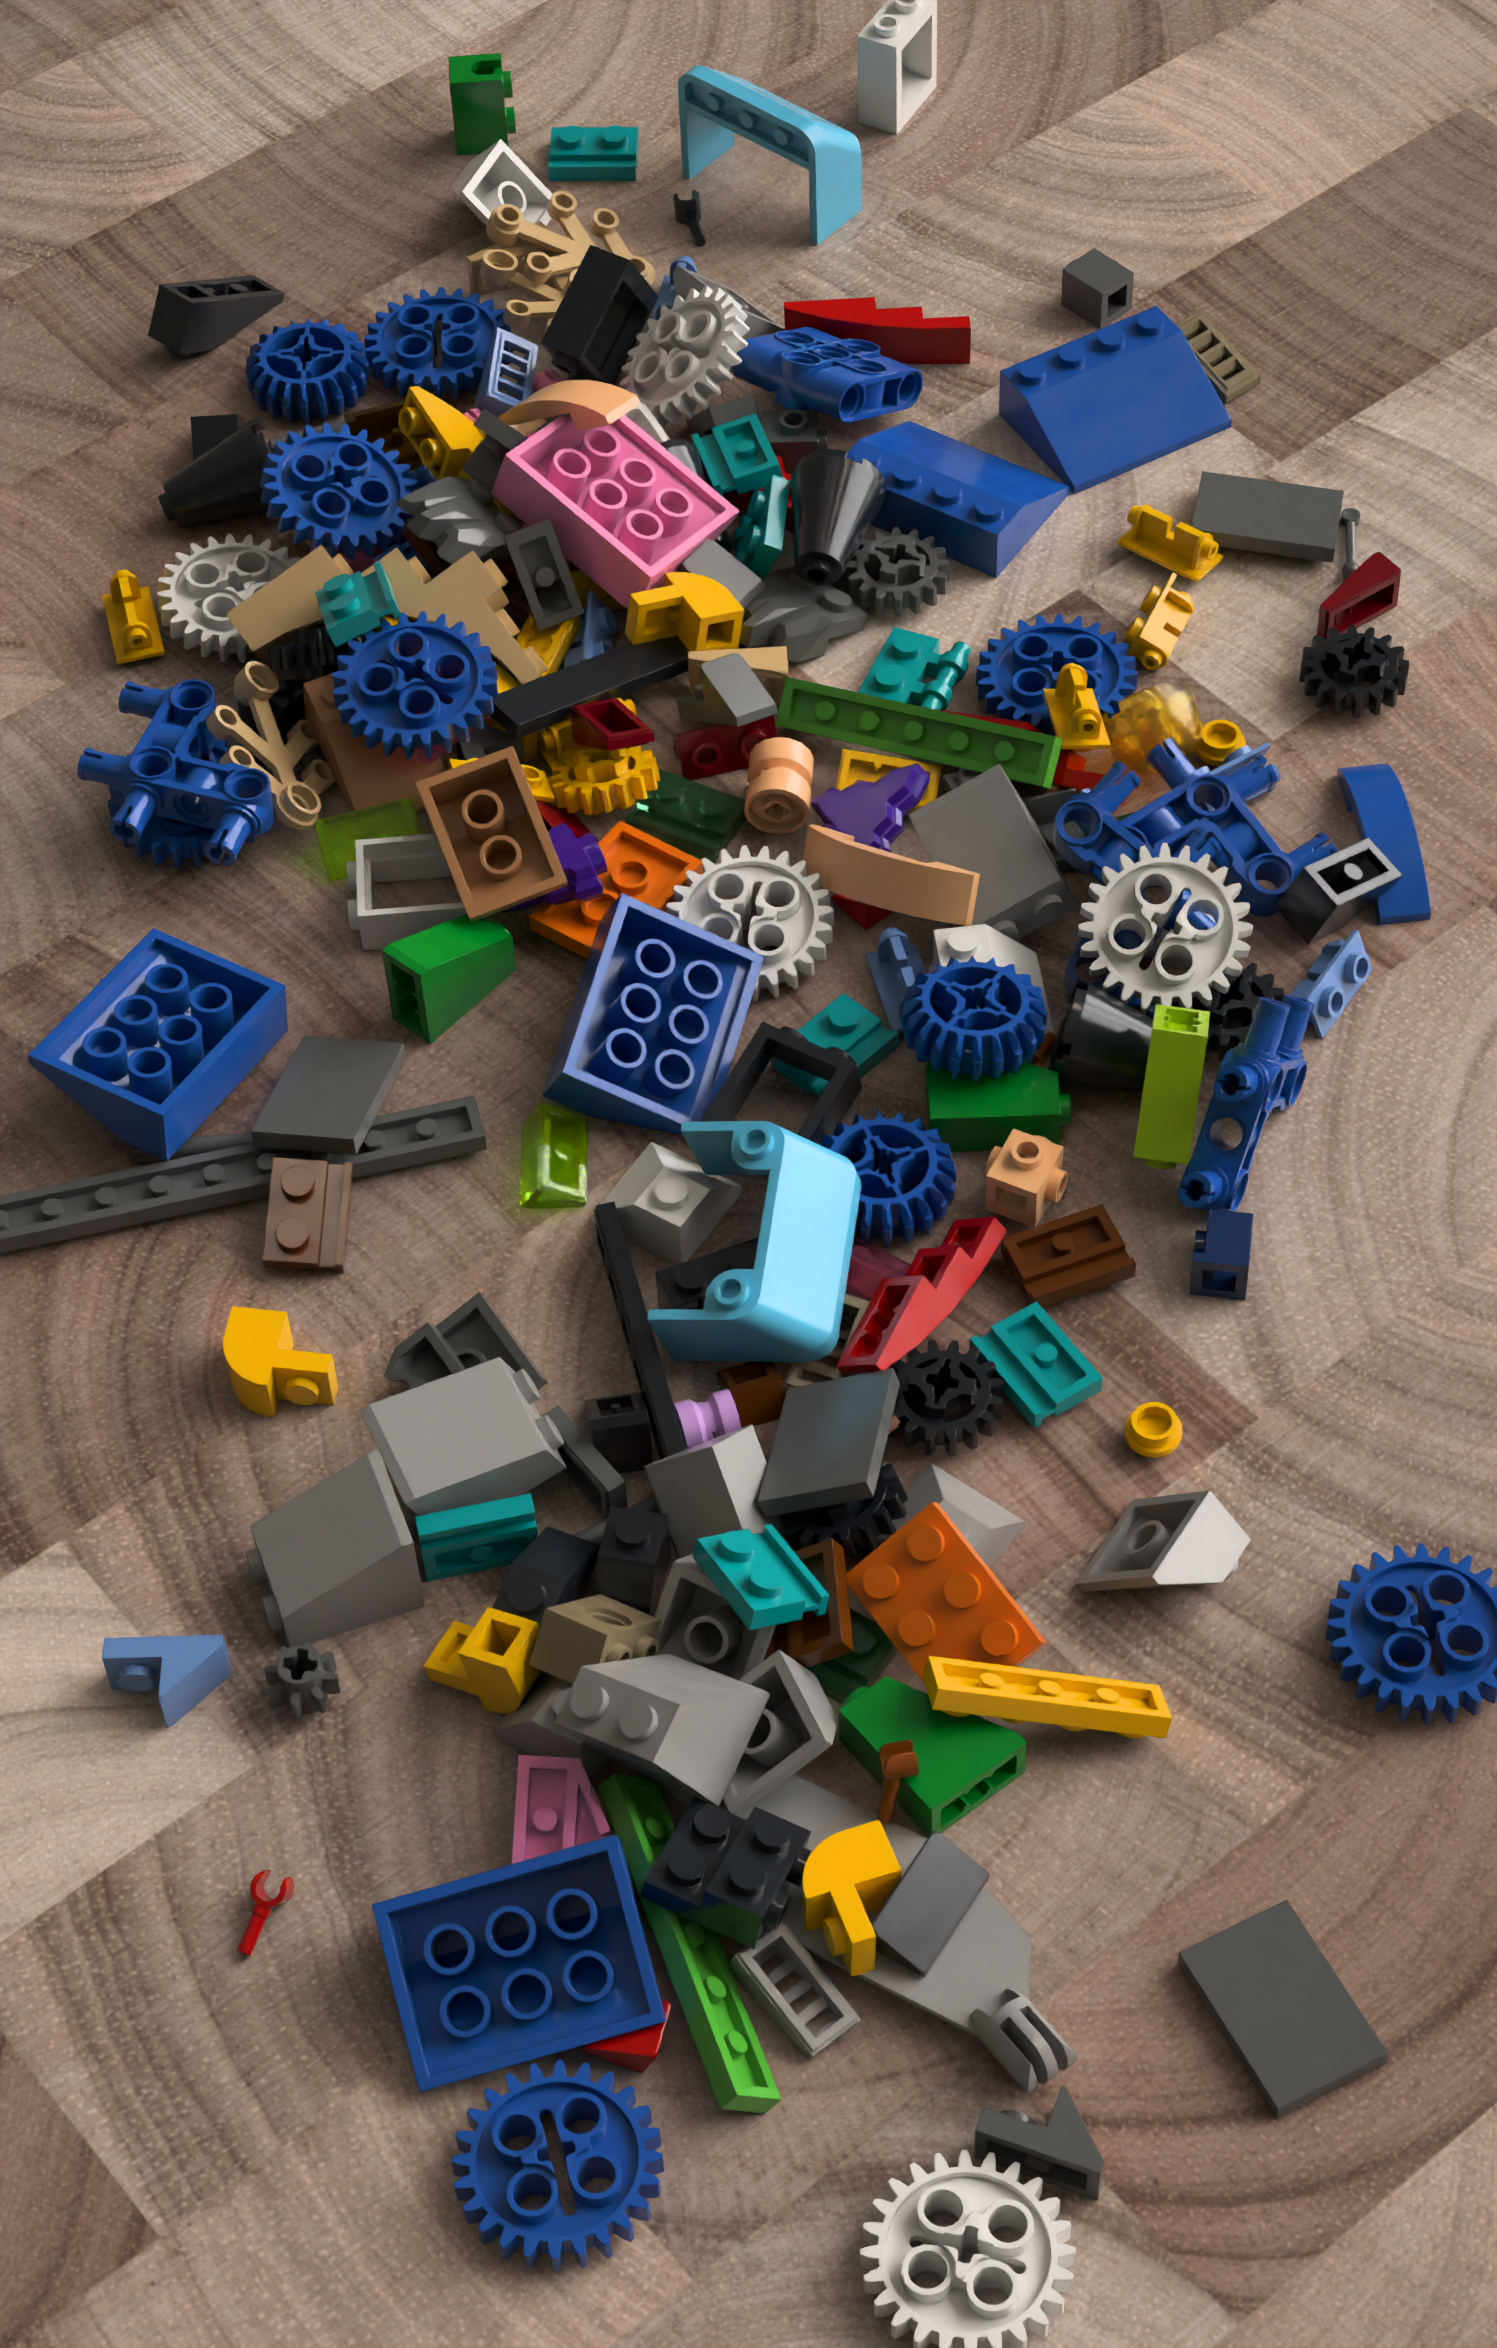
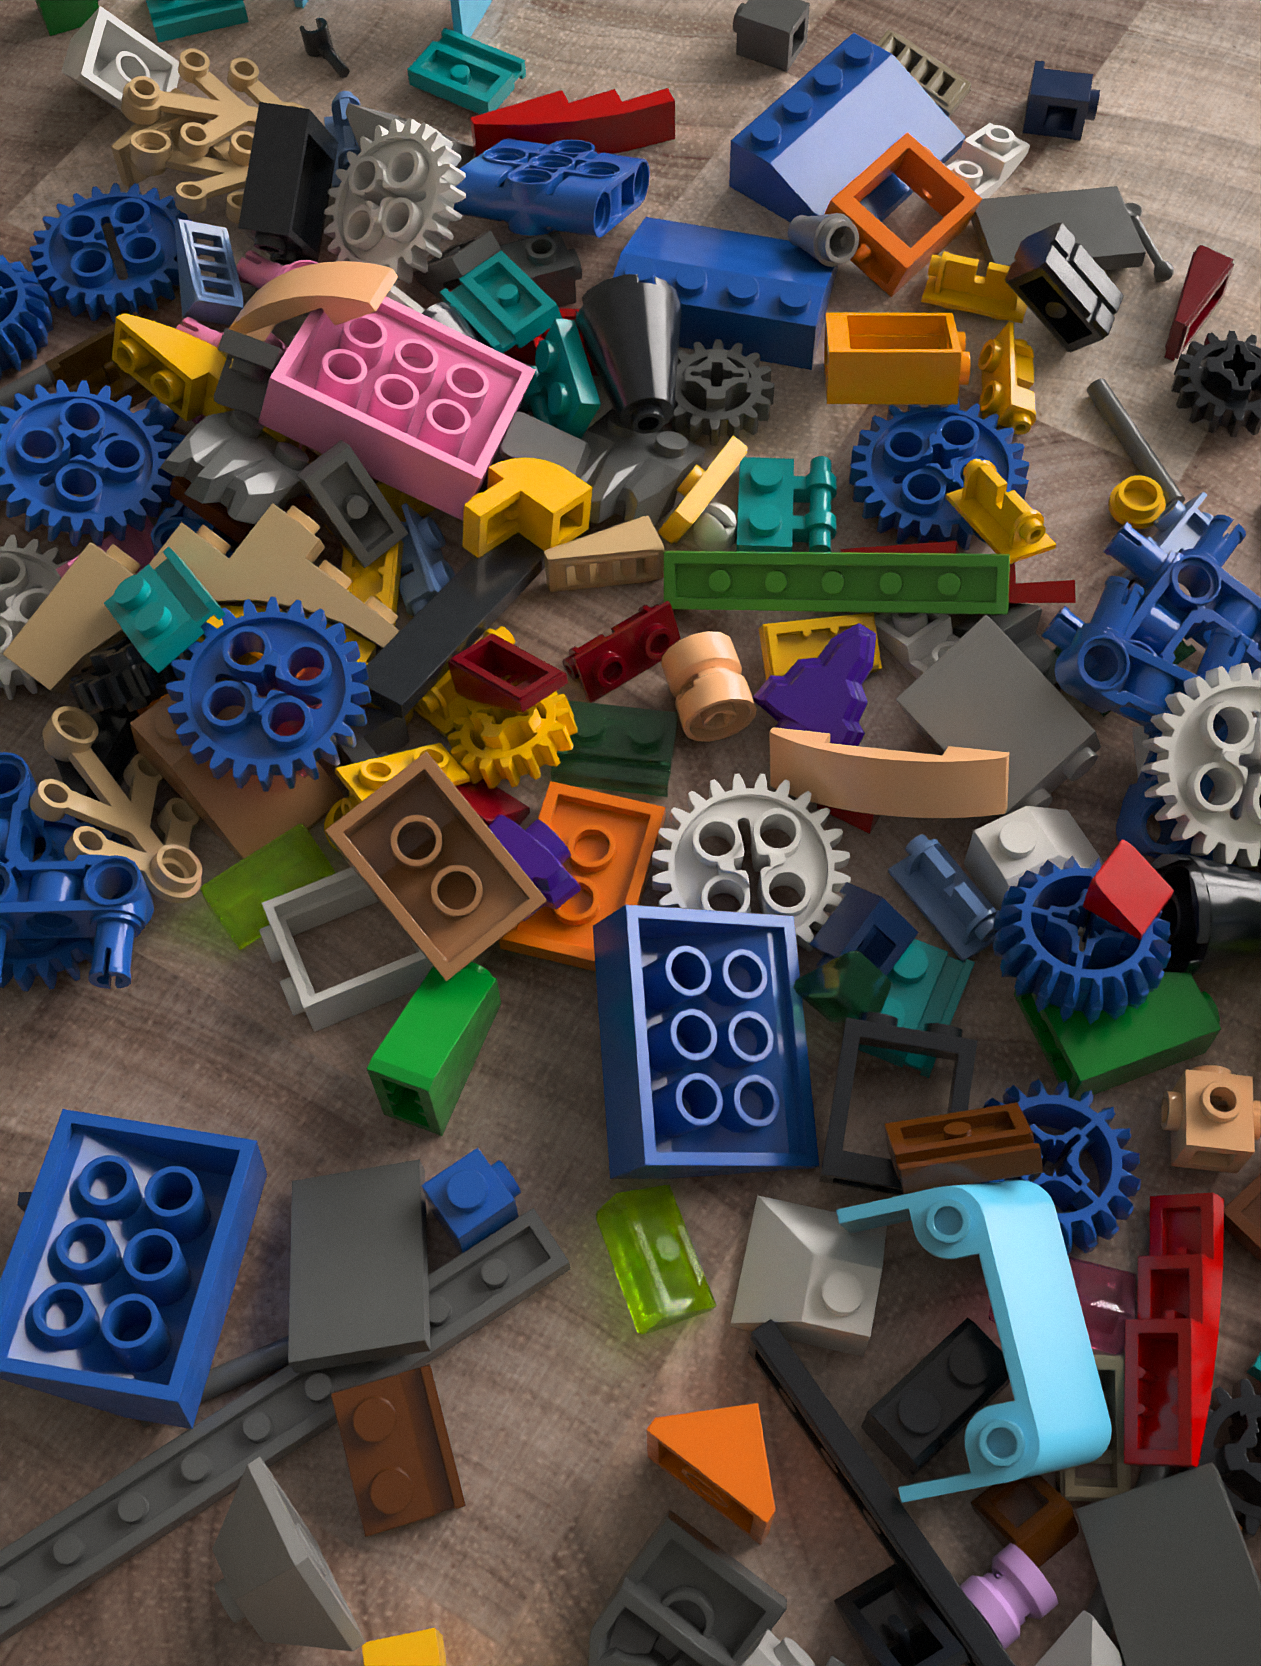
camera: 20 degrees left, 10 degrees up
(190, 1247) = (278, 1571): none -> light grey slope
(430, 1072) = (472, 1199): none -> blue brick
(532, 1272) = (721, 1461): none -> orange slope
(727, 694) = (611, 595): slope -> none
(780, 1007) = (845, 987): none -> clear green slope
(805, 264) = (466, 72): none -> teal plate
(822, 1120) = (962, 1148): none -> reddish brown plate
(827, 987) = (864, 925): none -> dark blue brick
(841, 672) = (710, 533): none -> white hinge
(846, 642) = (700, 488): none -> yellow plate
(1013, 979) = (1127, 891): none -> slope
(1047, 469) = (826, 237): none -> light grey cone
(1055, 577) = (894, 358): none -> light orange window
(1091, 490) = (889, 259): none -> orange window
(1151, 718) = (1085, 509): clear yellow cylinder -> none
(1235, 447) = (989, 158): none -> white slope
(1235, 556) = (1064, 287): none -> black brick
(1245, 694) = (1132, 439): none -> dark grey bar
(1327, 409) = (1059, 103): none -> dark blue brick

